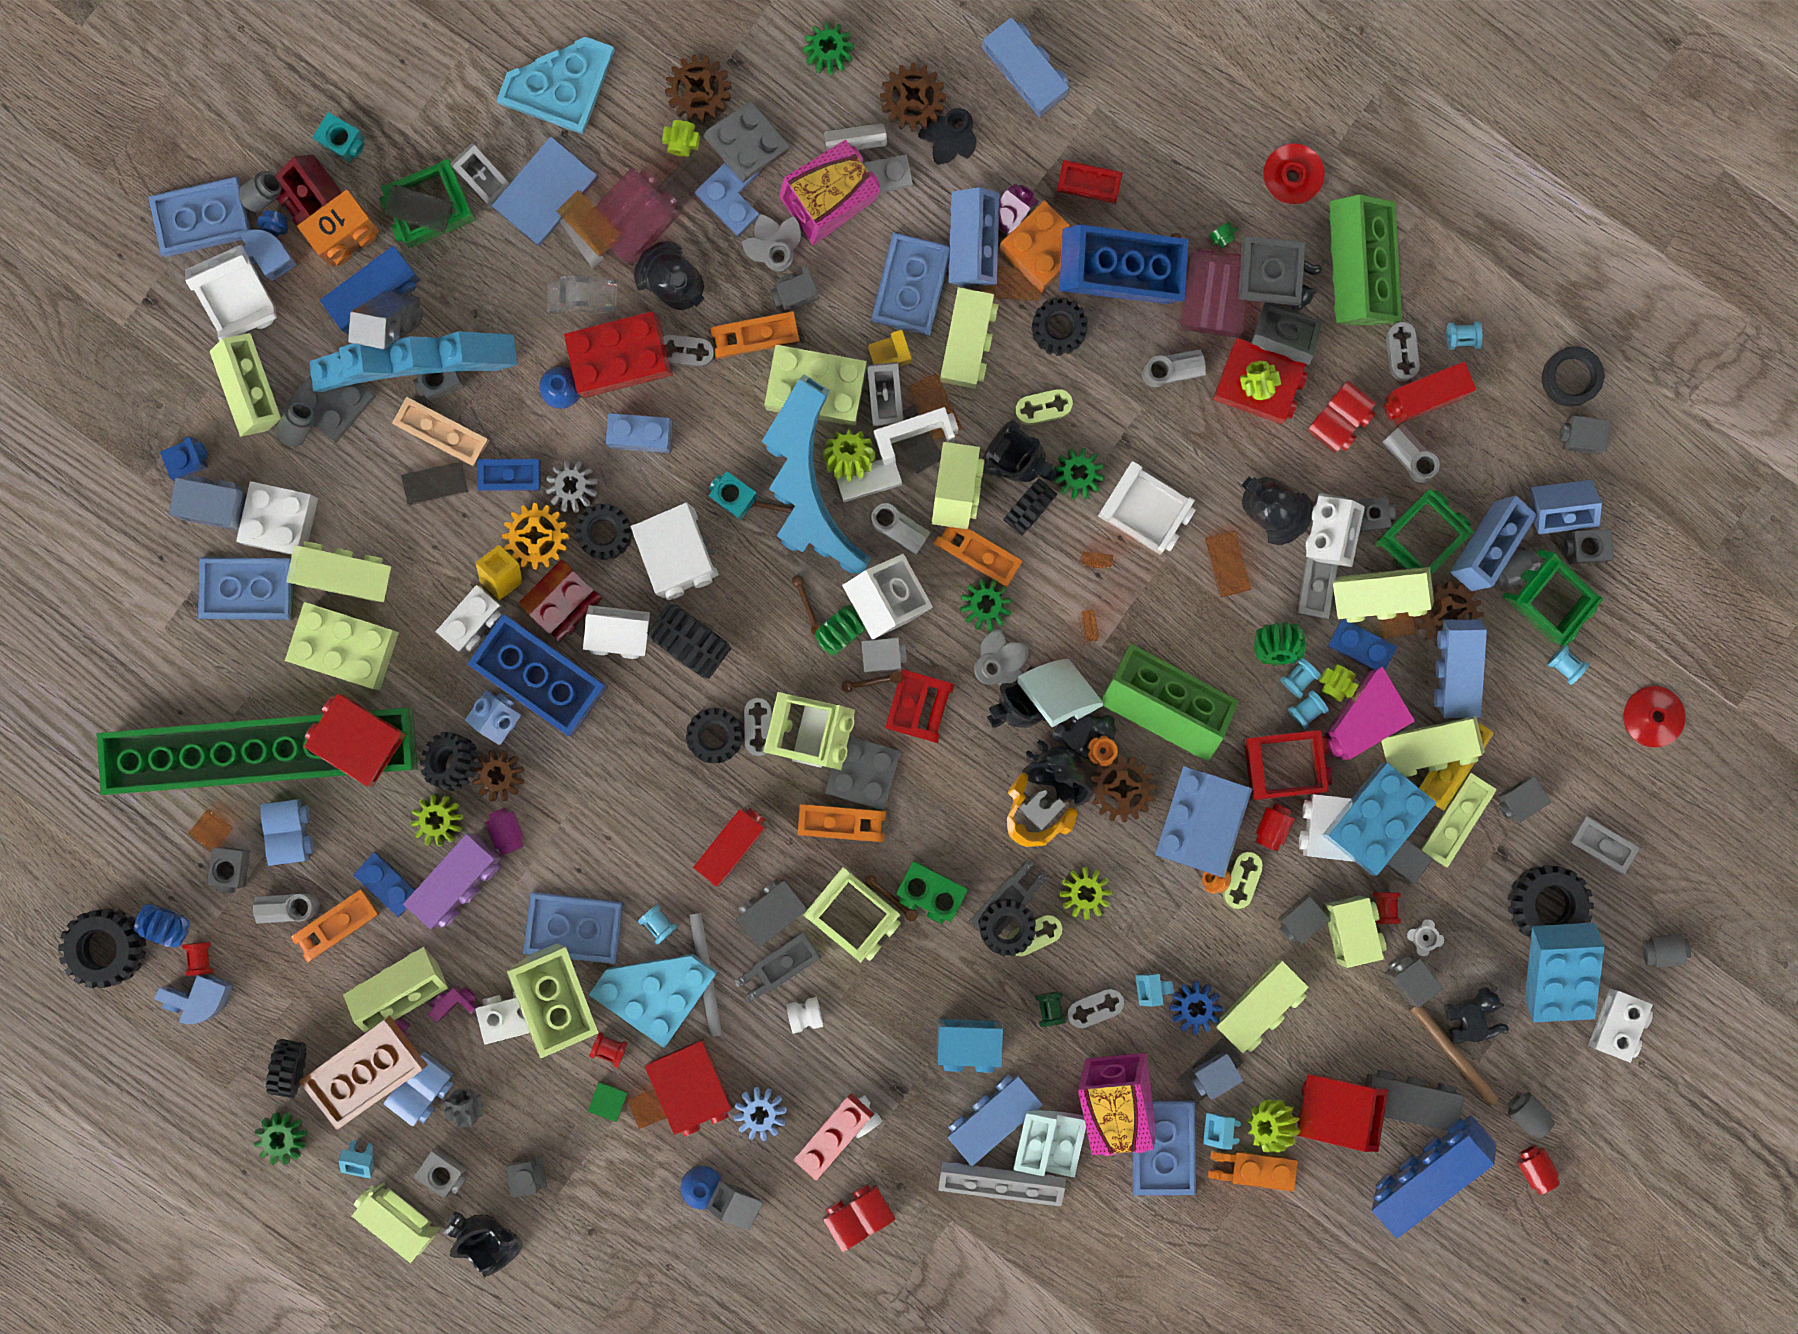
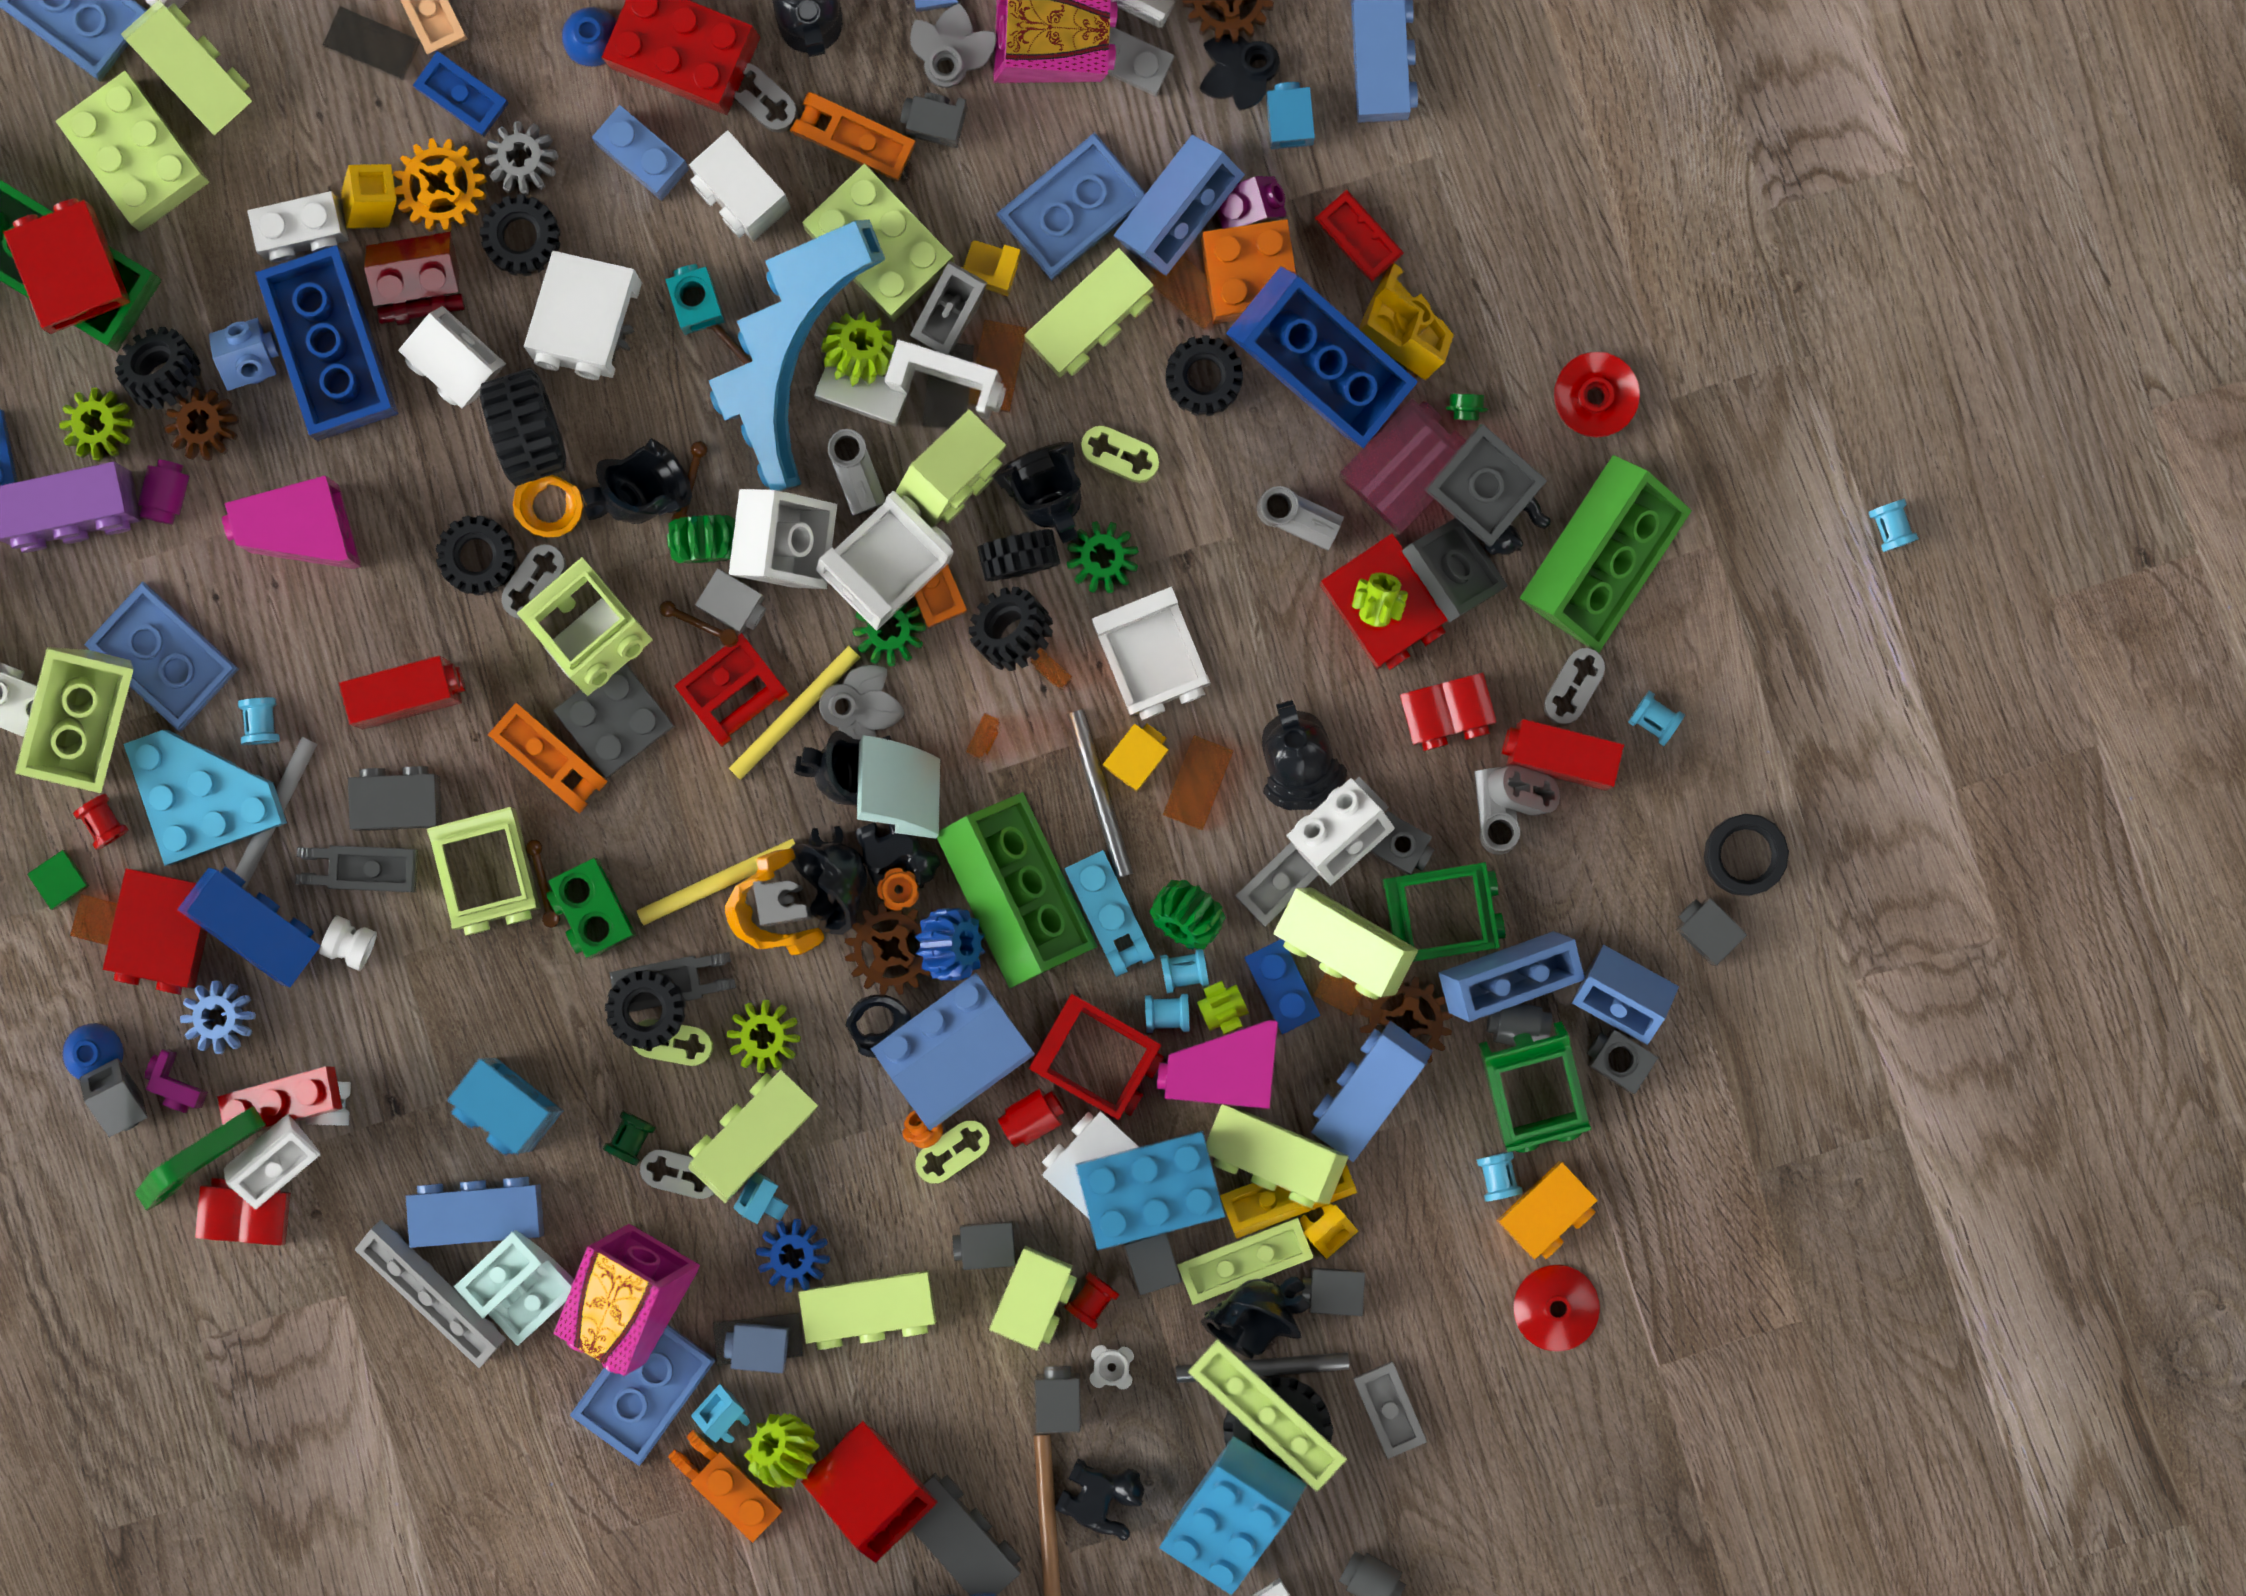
camera: 35 degrees right, 0 degrees up
(596, 793) = (295, 523): none -> dark pink slope
(712, 411) = (740, 186): none -> white brick
(722, 690) = (524, 511): none -> light orange piece
(742, 1046) = (250, 925): none -> blue brick
(767, 1175) = (176, 1093): none -> magenta bracket
(780, 627) = (639, 486): none -> black helmet
(811, 1204) = (174, 1172): none -> green beam
(855, 1175) = (270, 1162): none -> white slope
(956, 564) = (886, 560): none -> white panel
(965, 693) = (794, 713): none -> light yellow bar
(988, 829) = (705, 887): none -> light yellow bar
(999, 141) = (1290, 116): none -> dark azure brick
(1043, 550) = (1023, 640): none -> black tyre
(1121, 955) = (751, 1134): none -> yellowish green brick
(1149, 850) = (868, 1041): none -> black piece
(1155, 213) = (1406, 326): none -> yellow slope
(1156, 760) = (950, 944): none -> blue gear
(1175, 611) = (1100, 793): none -> flat silver bar
(1182, 574) = (1137, 756): none -> yellow brick
(1230, 676) = (1108, 911): none -> medium azure plate
(1420, 431) = (1524, 782): none -> light grey beam
(1489, 845) = (1257, 1315): none -> black helmet
(1494, 768) = (1329, 1231): none -> yellow tile
(1512, 874) = (1283, 1365): none -> flat silver piece
(1518, 126) = (1893, 525): none -> medium azure bush
(1543, 899) = (1267, 1415): none -> yellowish green plate
(1611, 664) = (1548, 1211): none -> light orange brick

